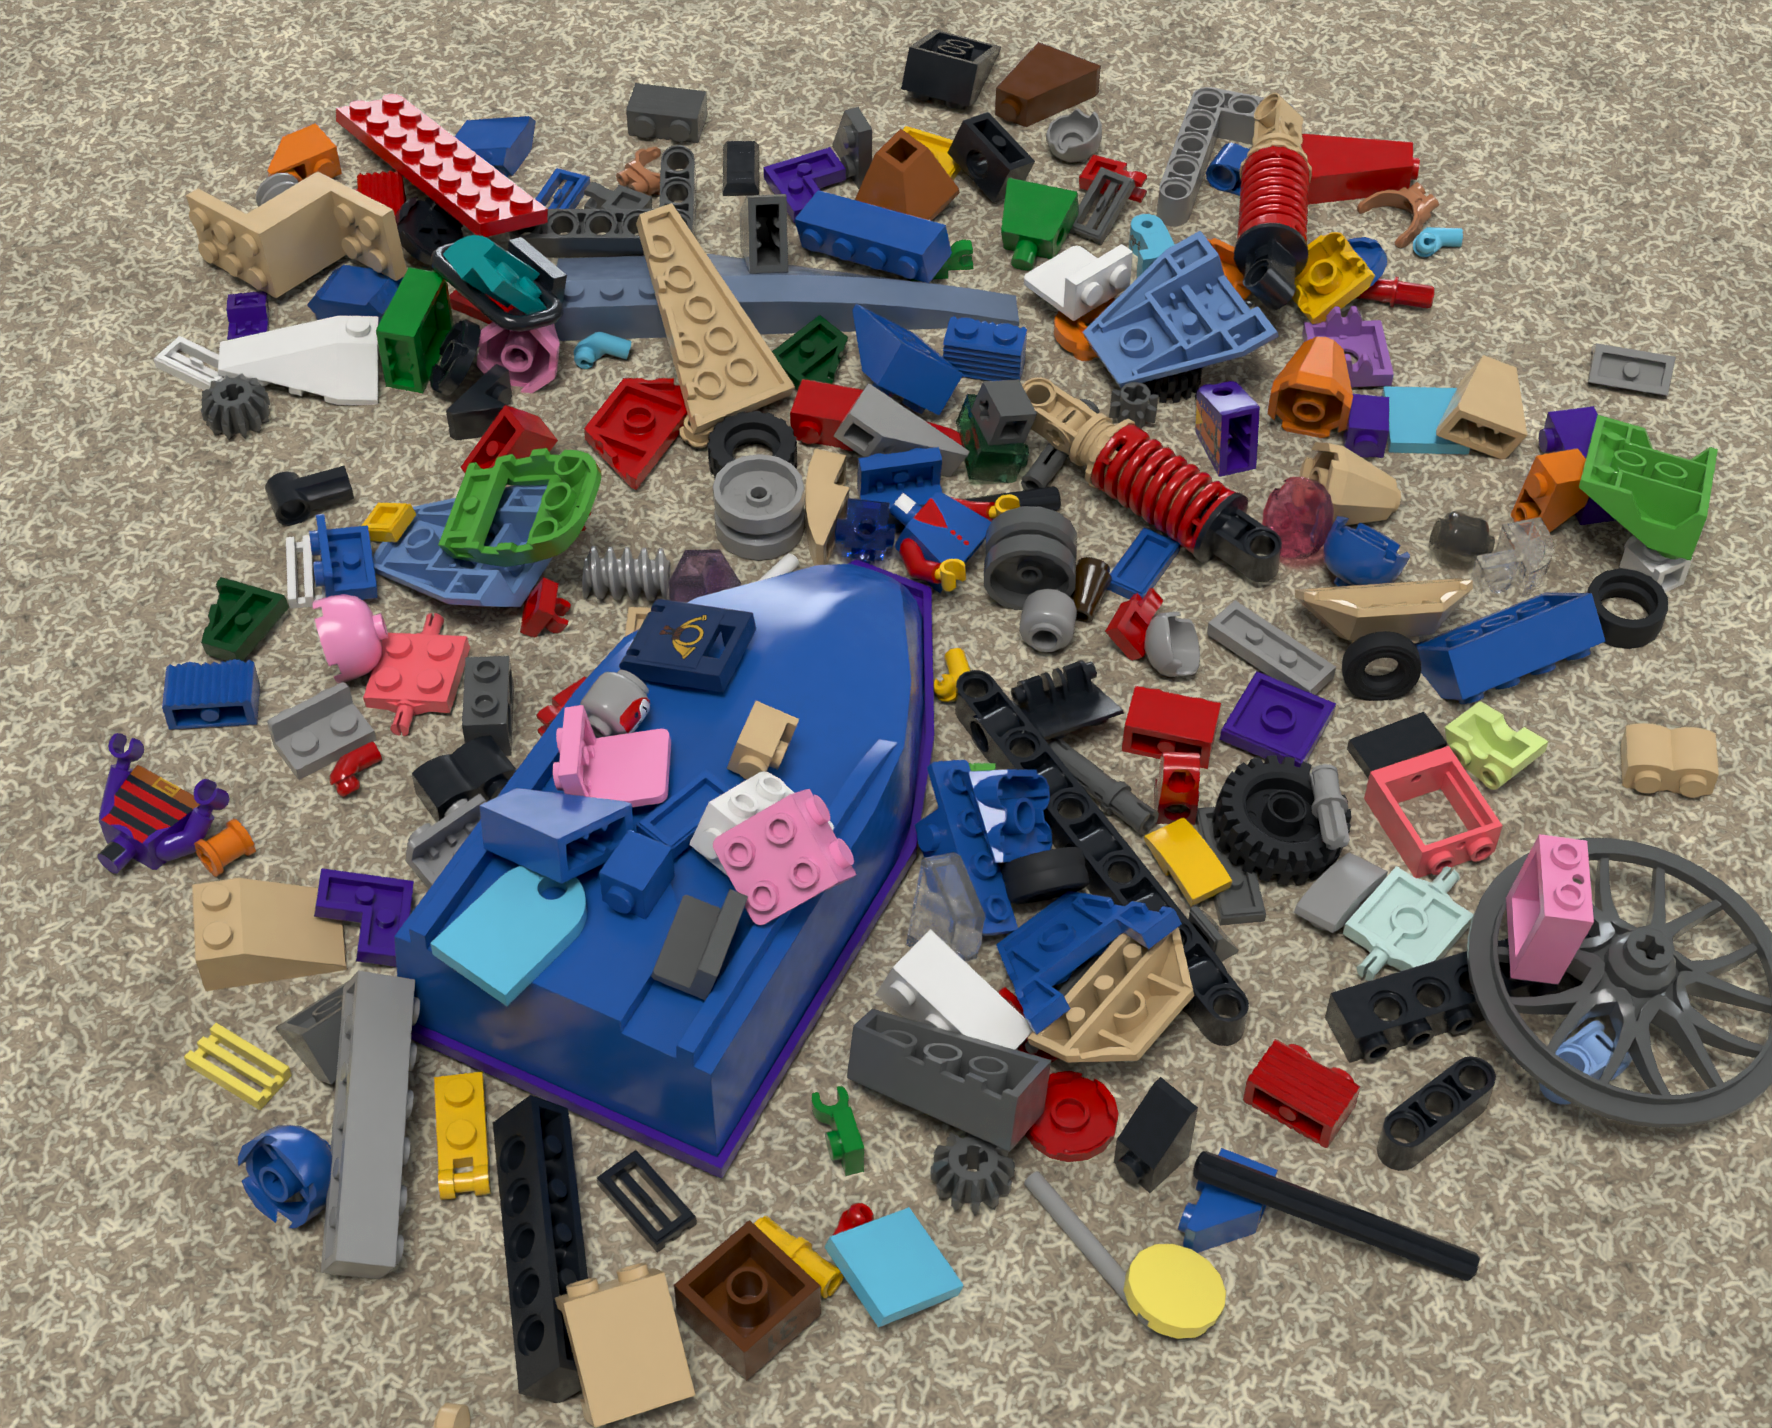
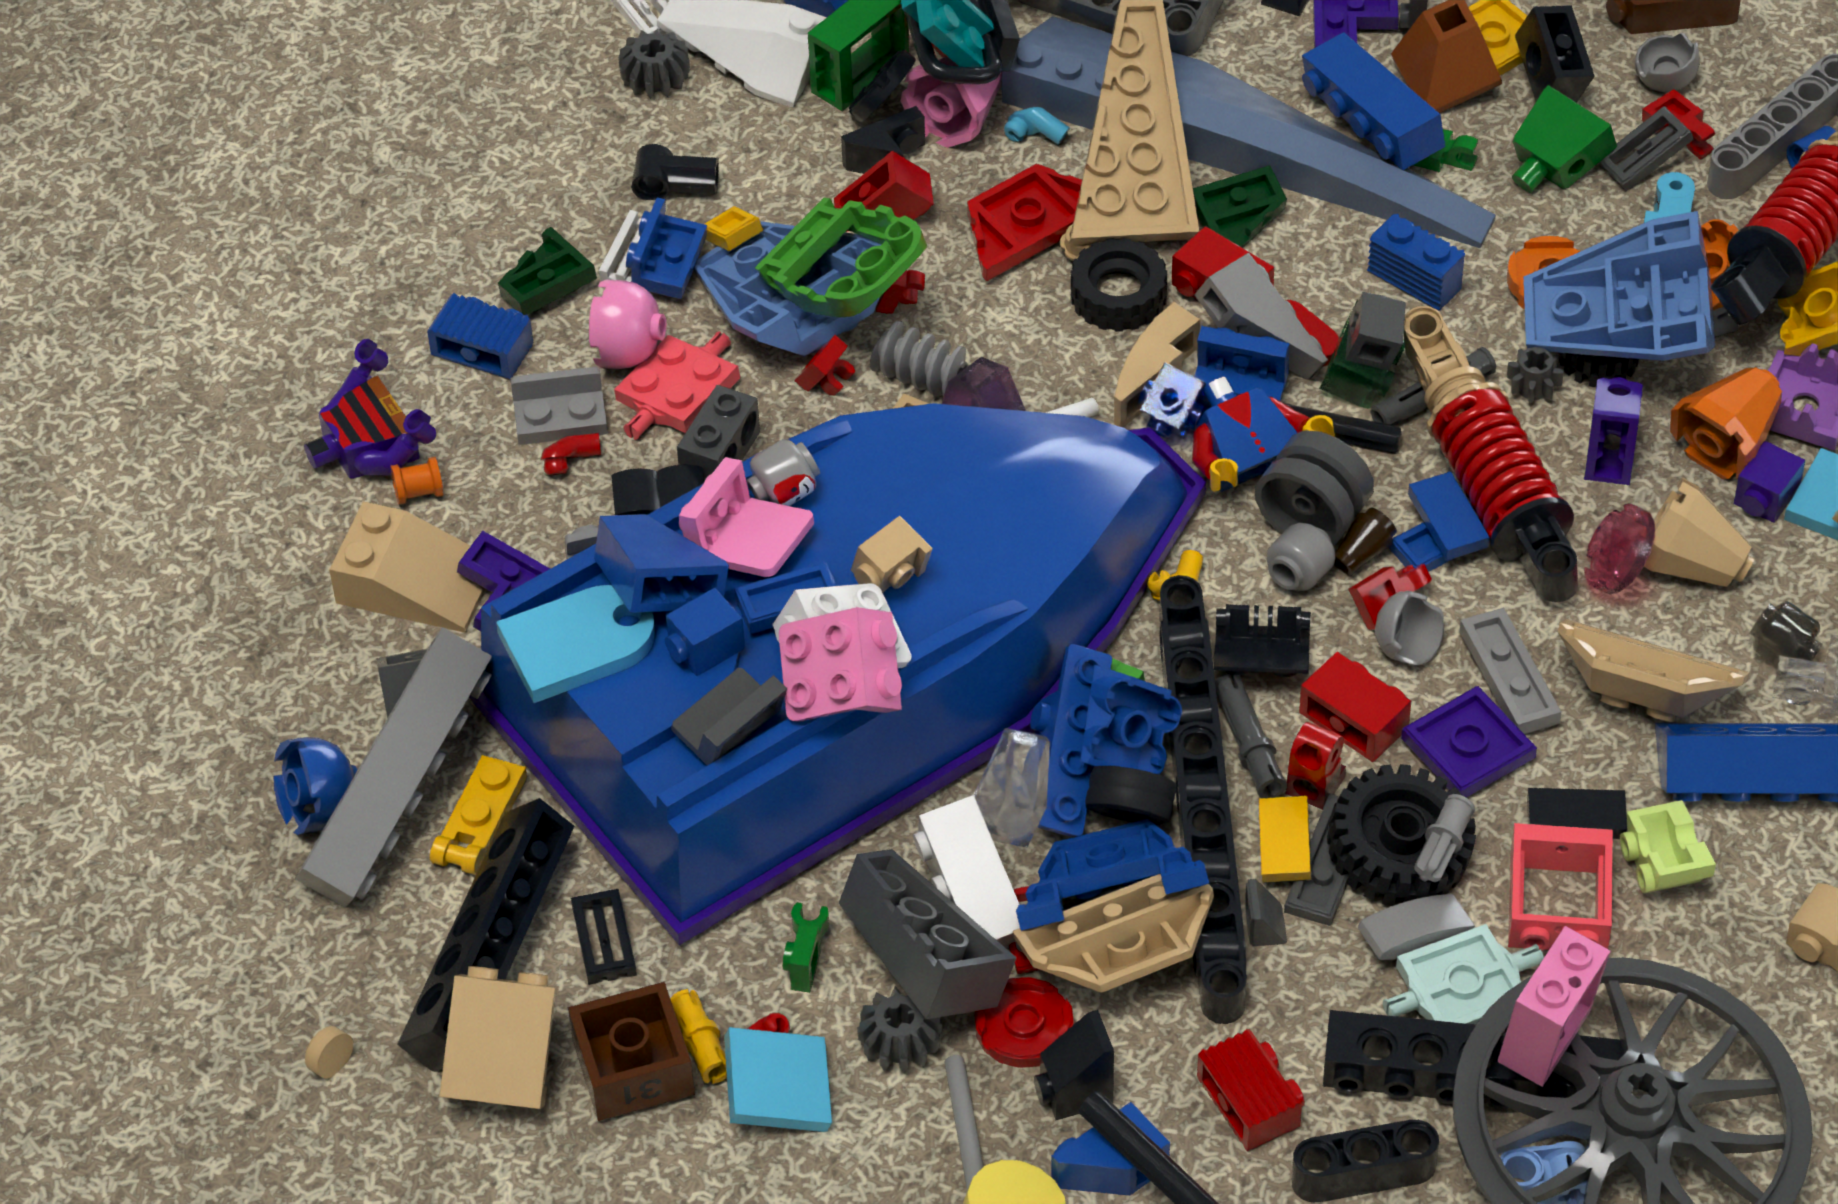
camera: 30 degrees right, 0 degrees up
(209, 1046) = (311, 653): light yellow tile -> none
(677, 640) = (877, 434): dark blue container -> none
(759, 506) = (1084, 339): light grey wheel -> none
(764, 233) = (1255, 62): dark grey slope -> none
(903, 363) = (1318, 242): blue slope -> none
(1080, 281) = (1558, 220): white bracket -> none
(1143, 542) = (1448, 516): none -> blue tile
(1362, 555) = (1662, 610): blue cylinder -> none
(1378, 646) = (1609, 707): black tyre -> none

